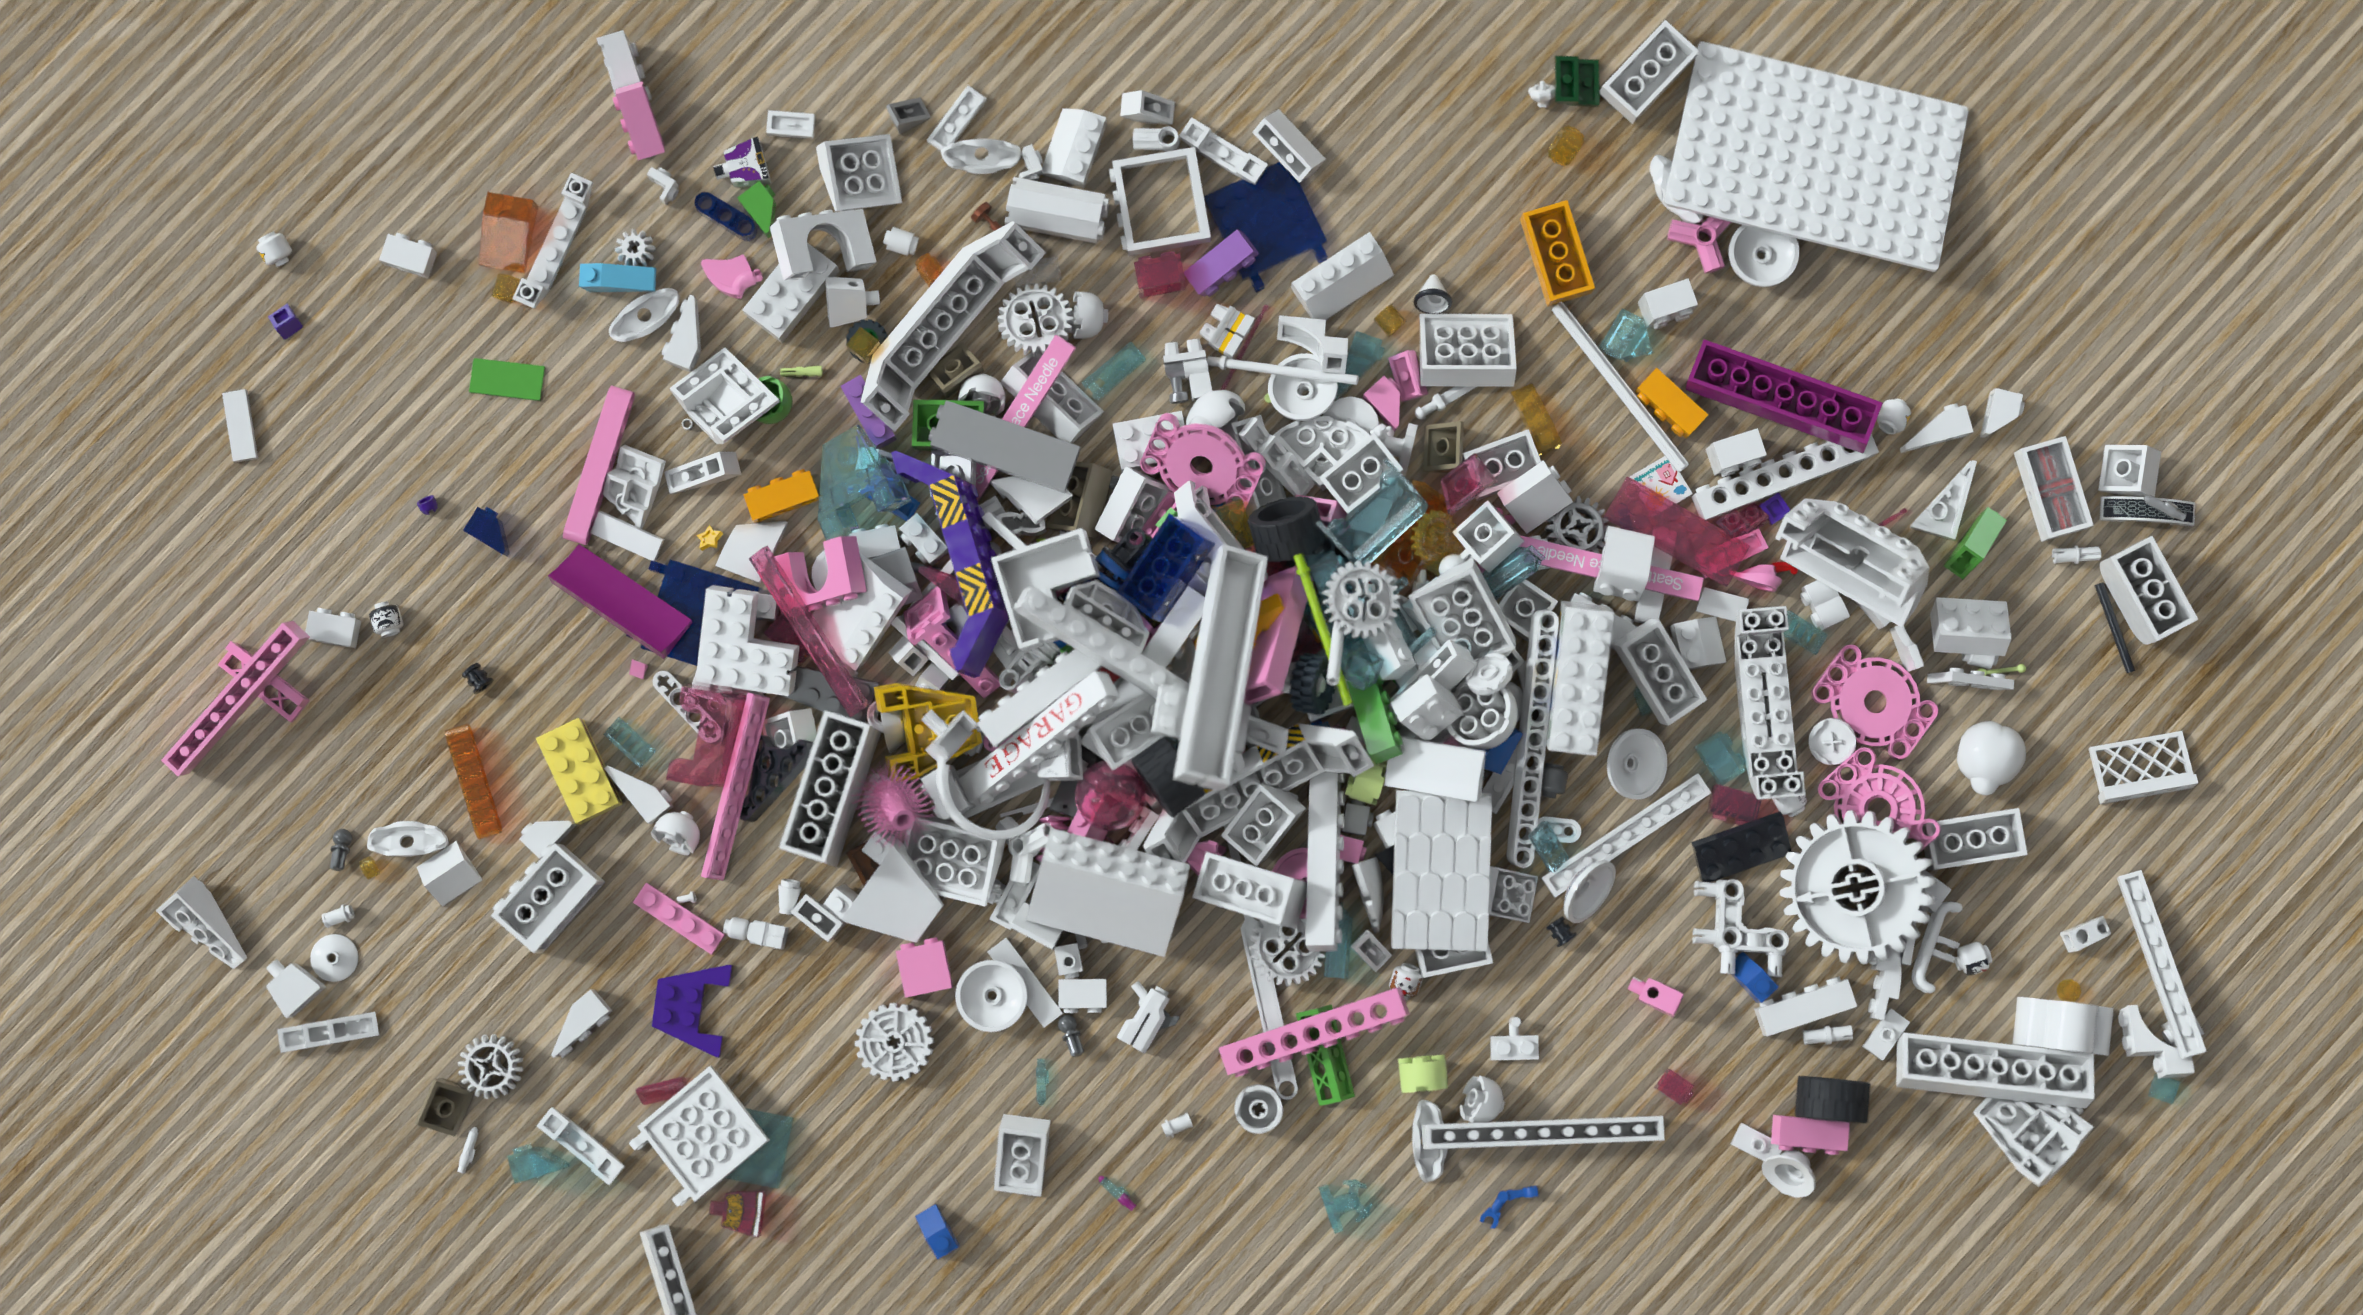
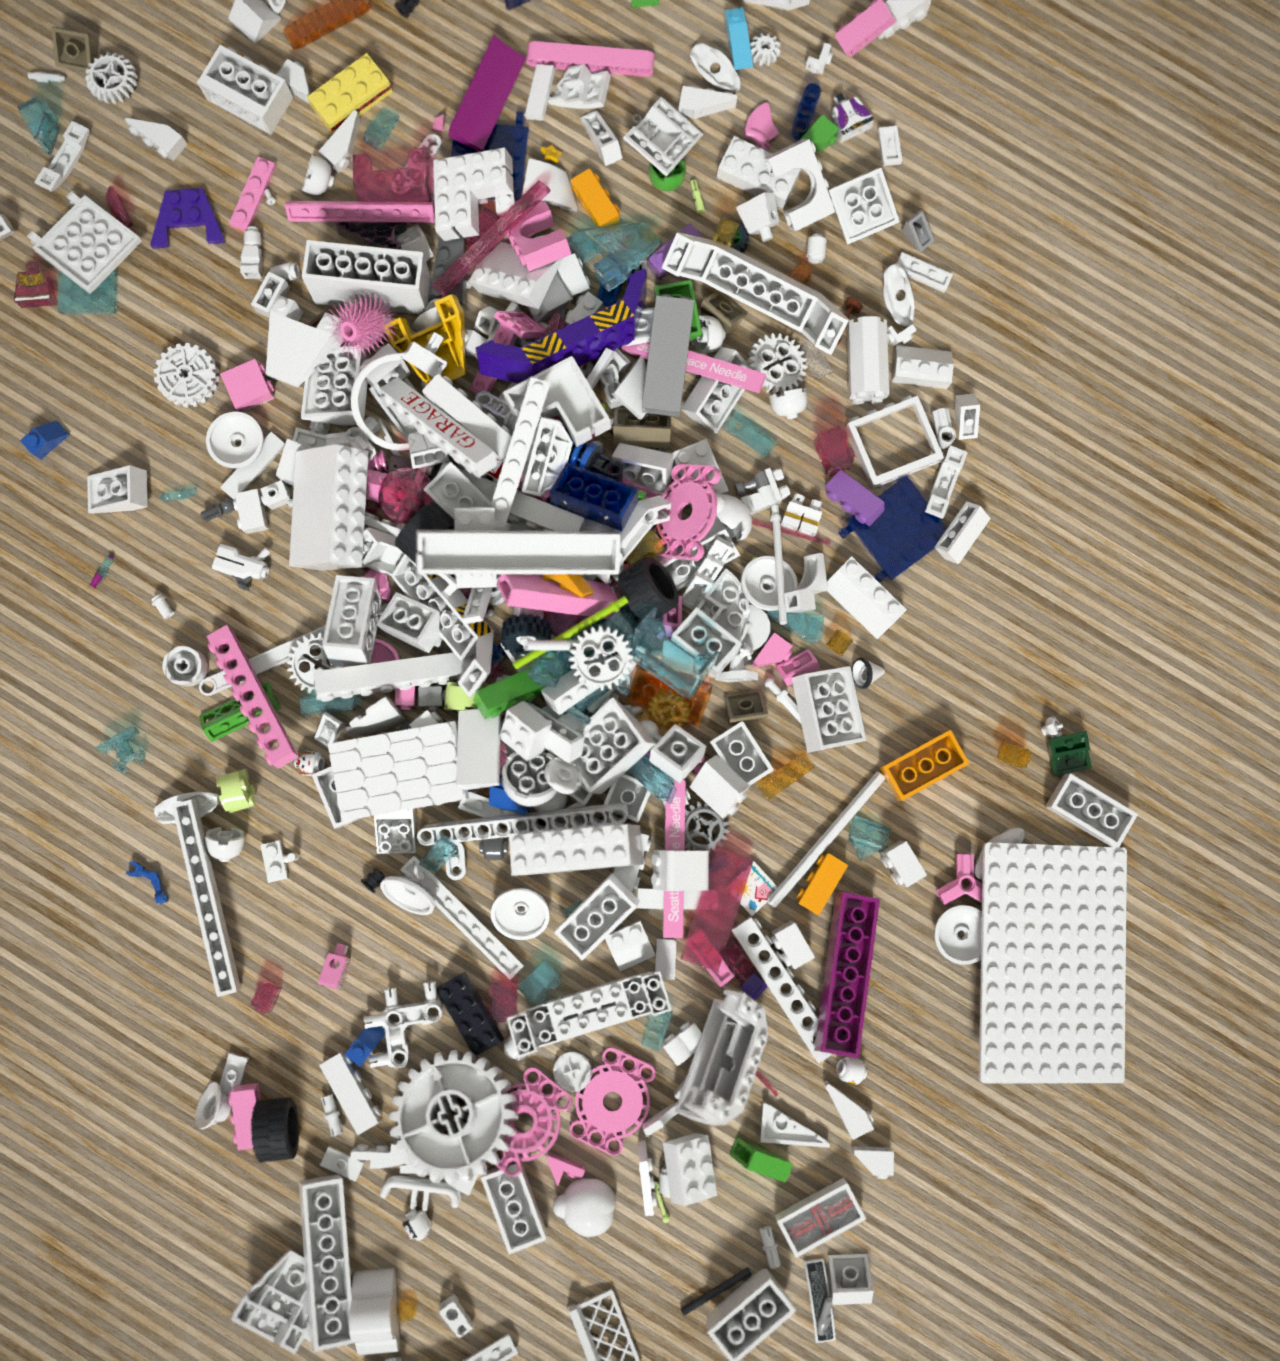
camera: 75 degrees right, 0 degrees up
(1466, 483) = (717, 727): clear pink slope -> none
(1764, 576) = (696, 988): bright pink piece -> none
(1937, 778) = (559, 1164): none -> bright pink slope

